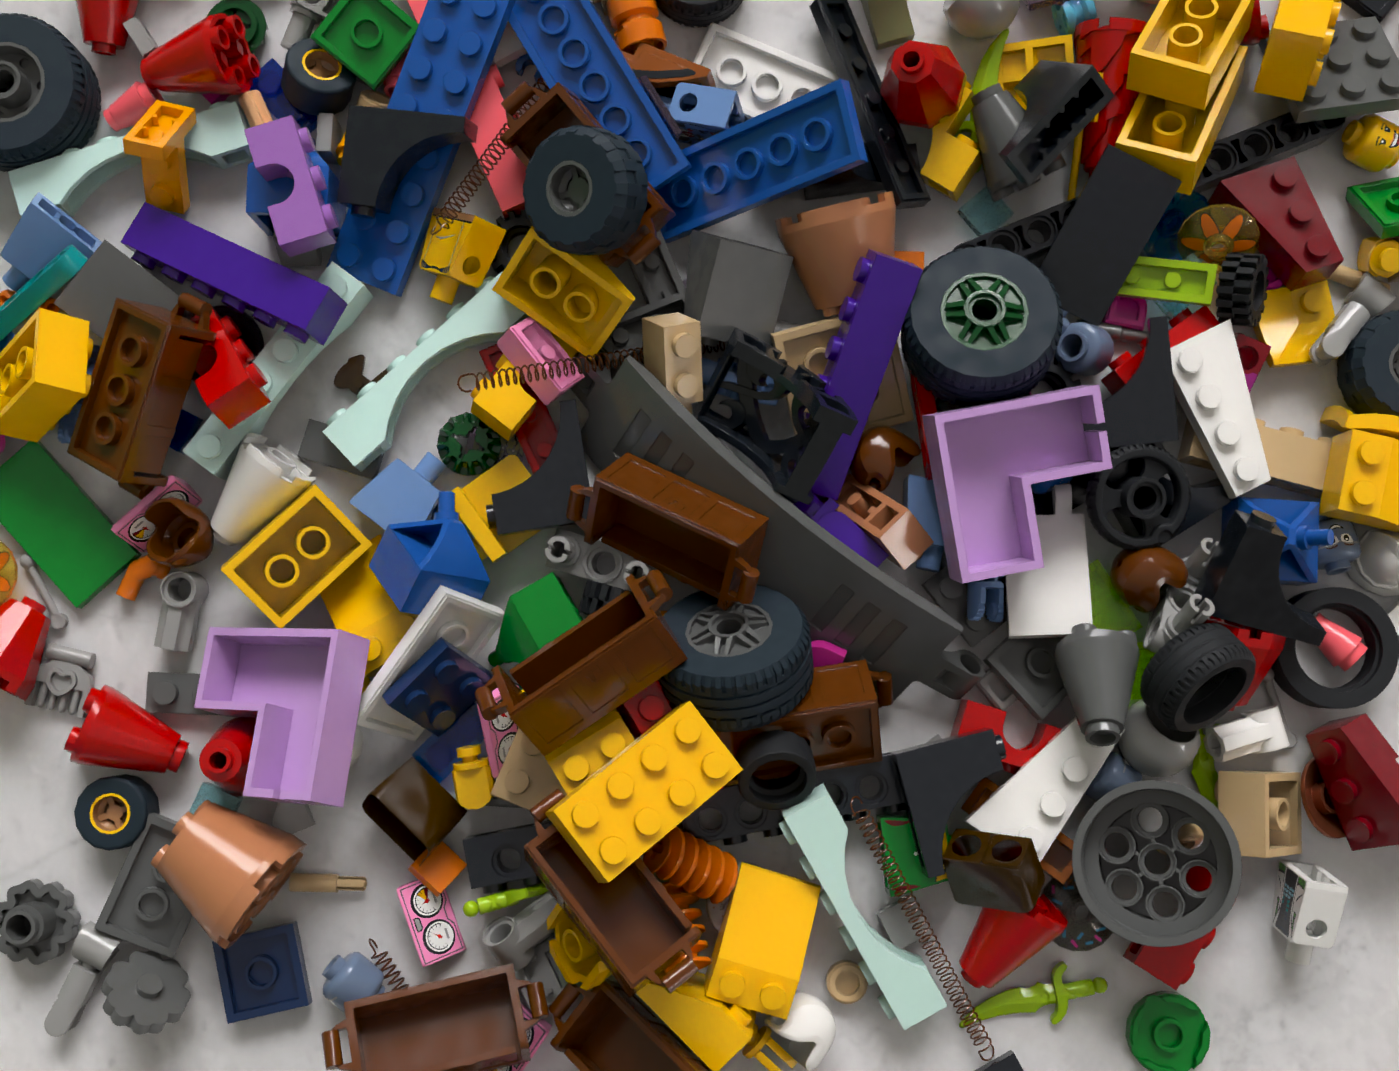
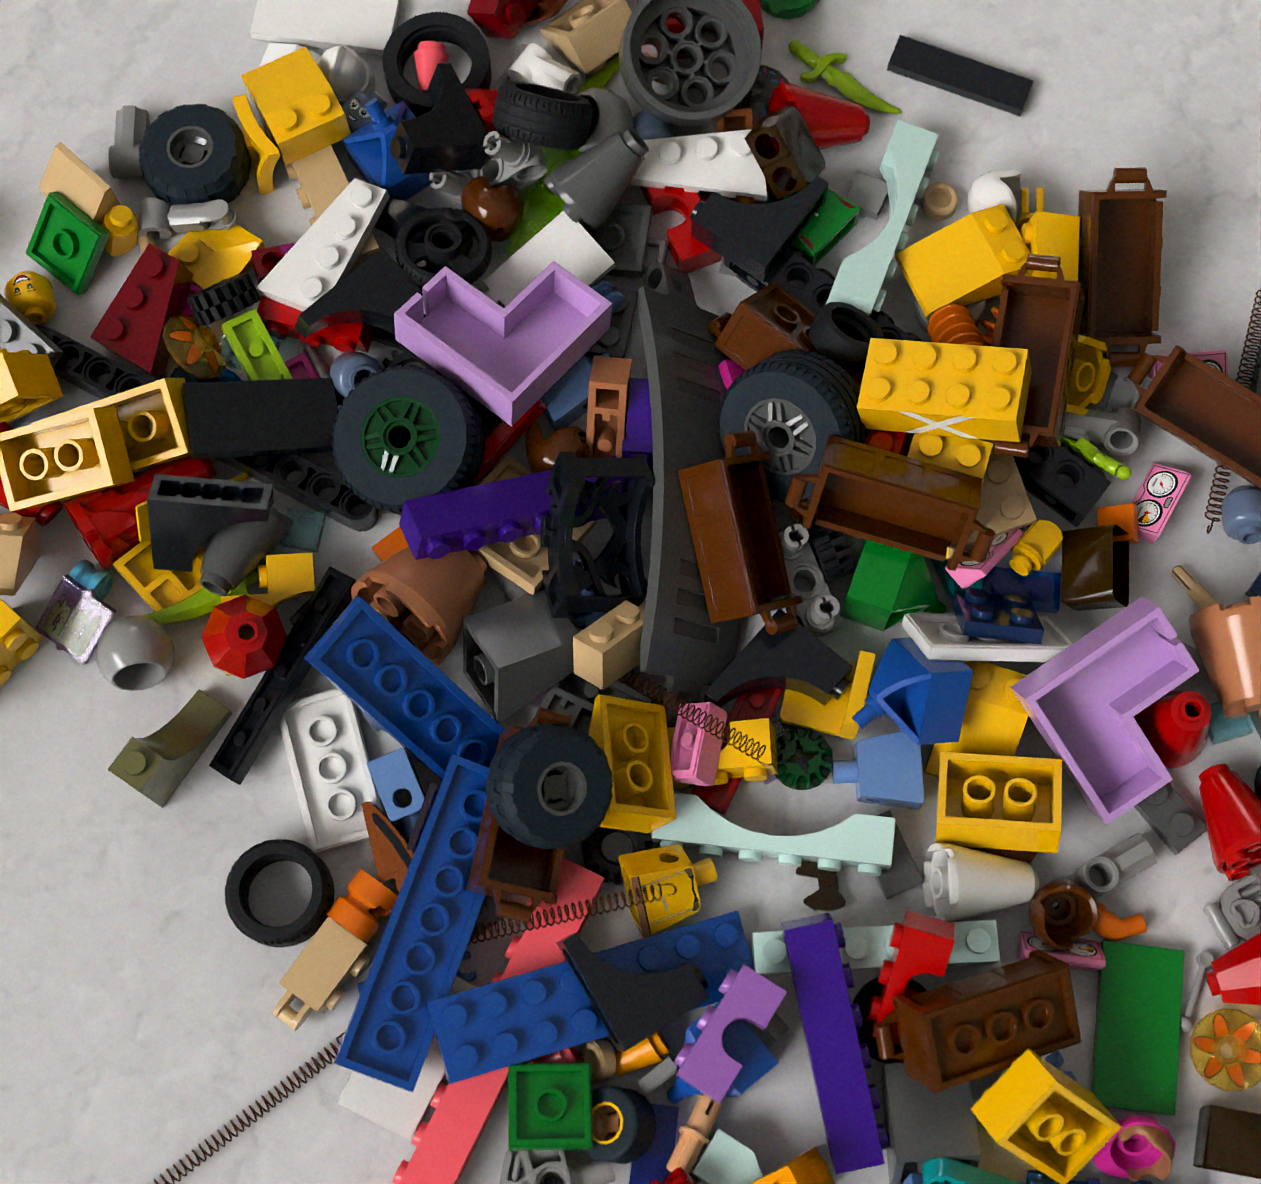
camera: 125 degrees left, 10 degrees down
(926, 929) = (860, 178): reddish brown piece -> none

